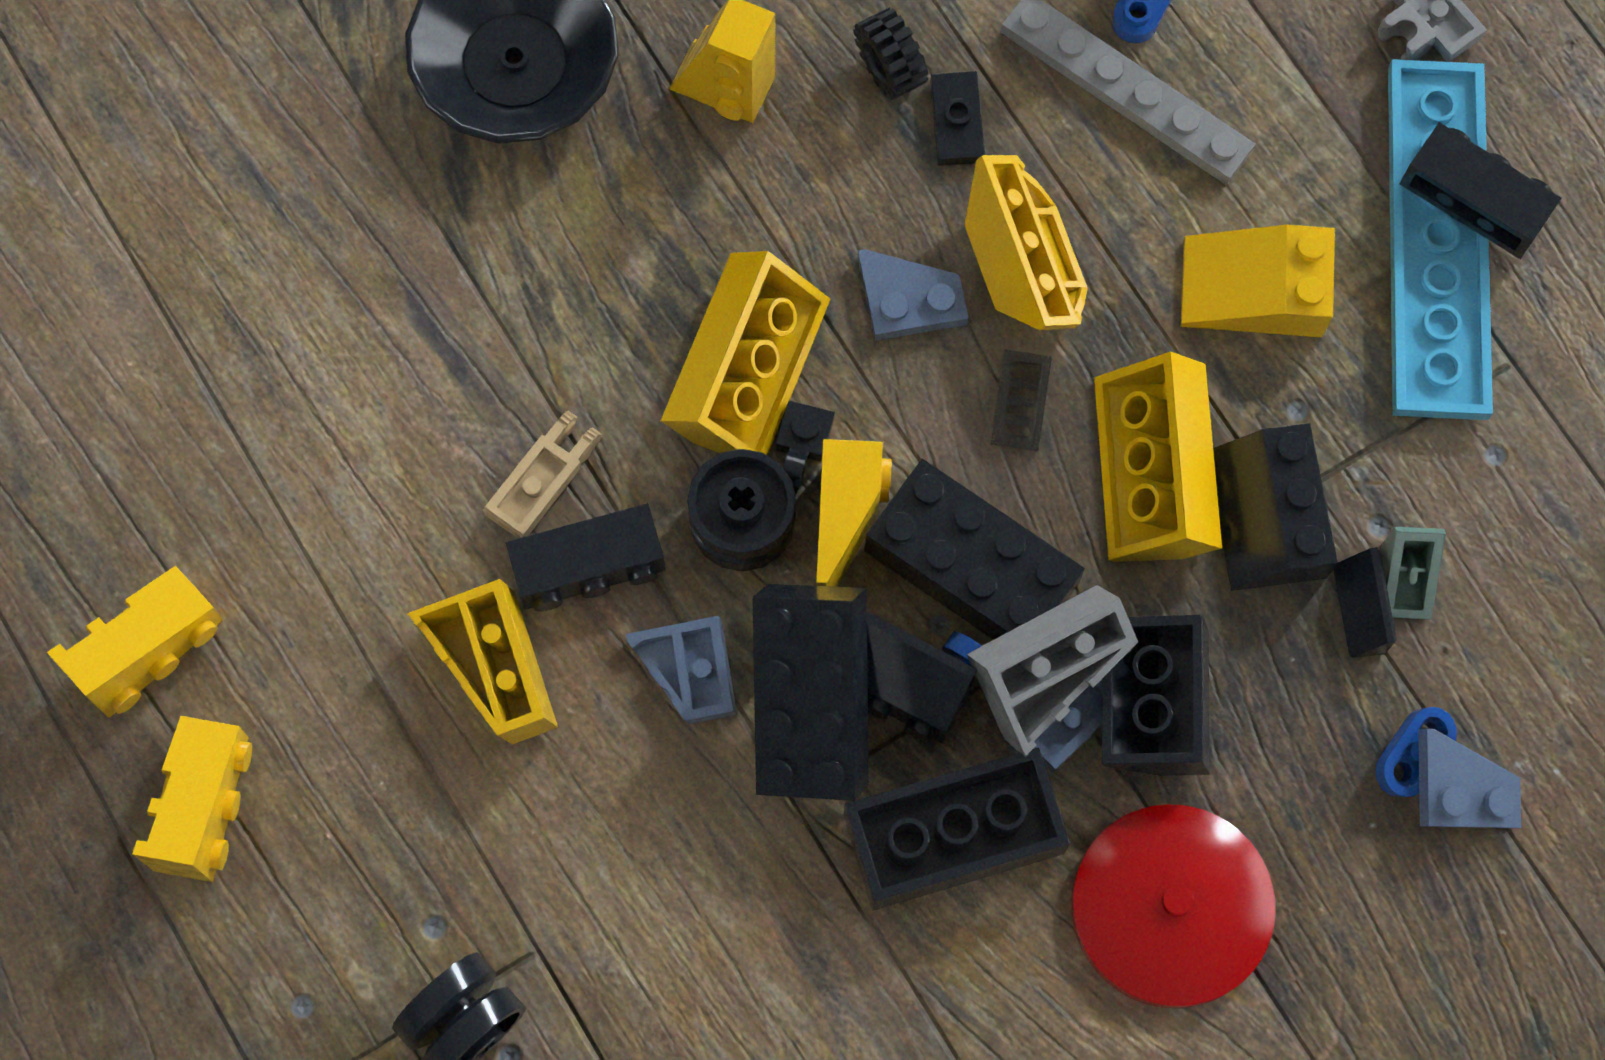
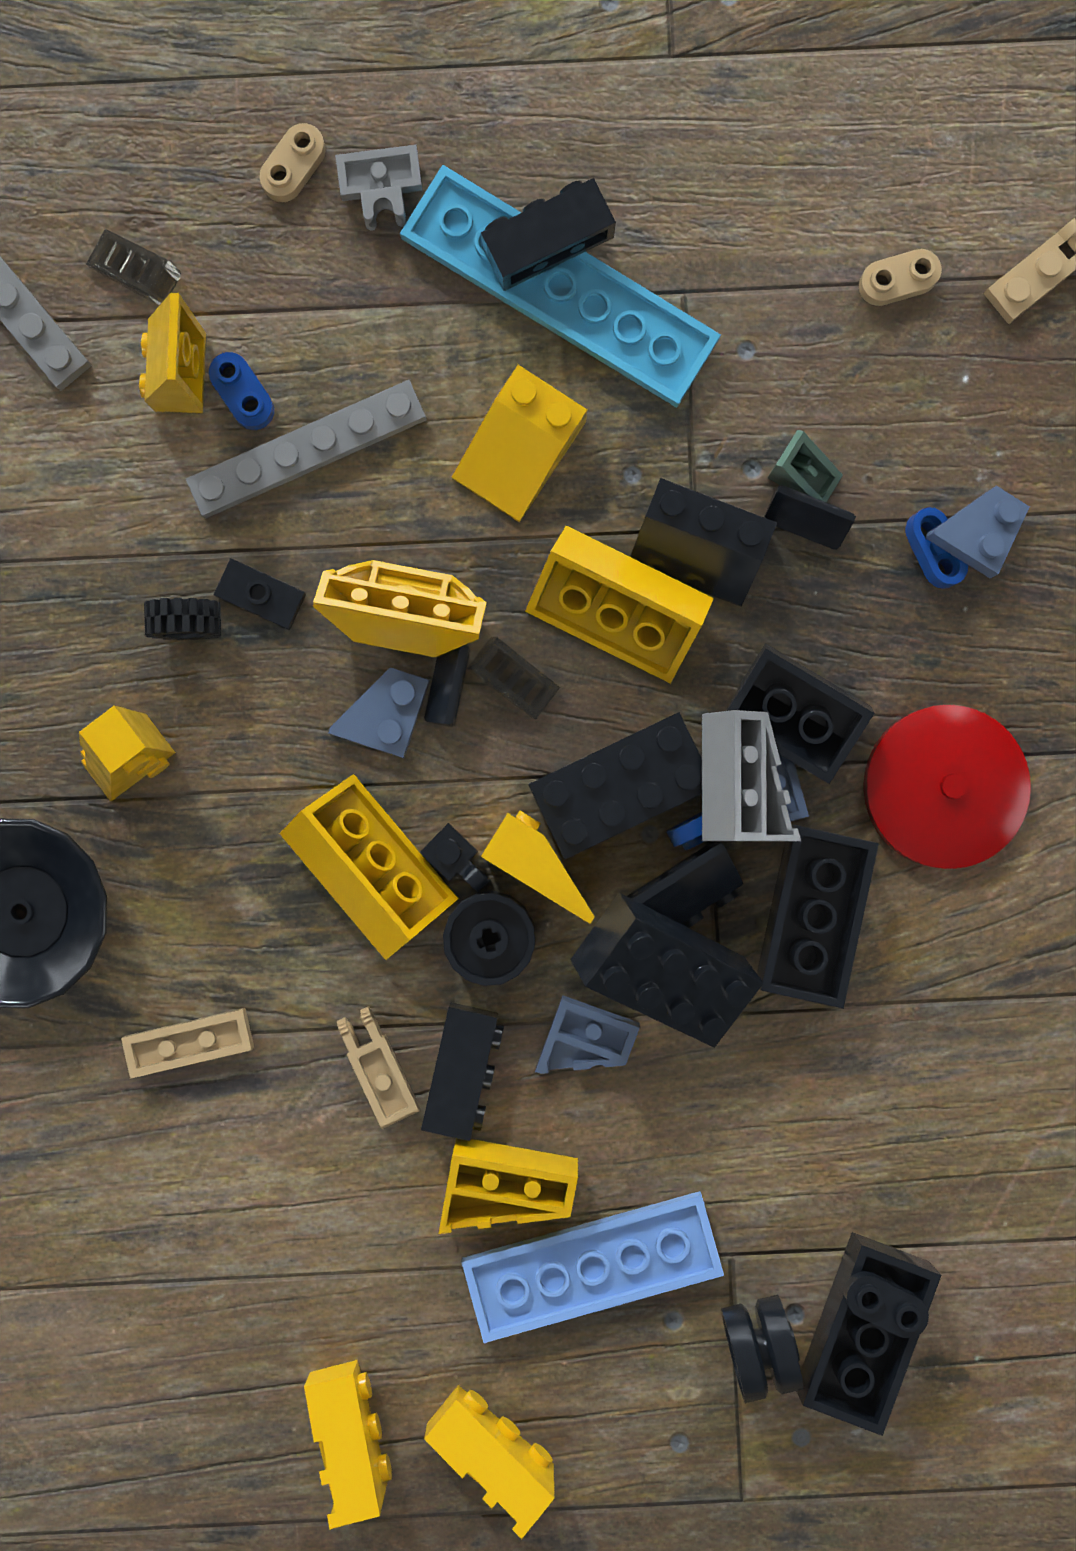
camera: 60 degrees left, 15 degrees up
(451, 804) = (592, 1267): none -> light blue plate
(468, 279) = (187, 1043): none -> tan plate
(975, 342) = (447, 687): none -> black slope

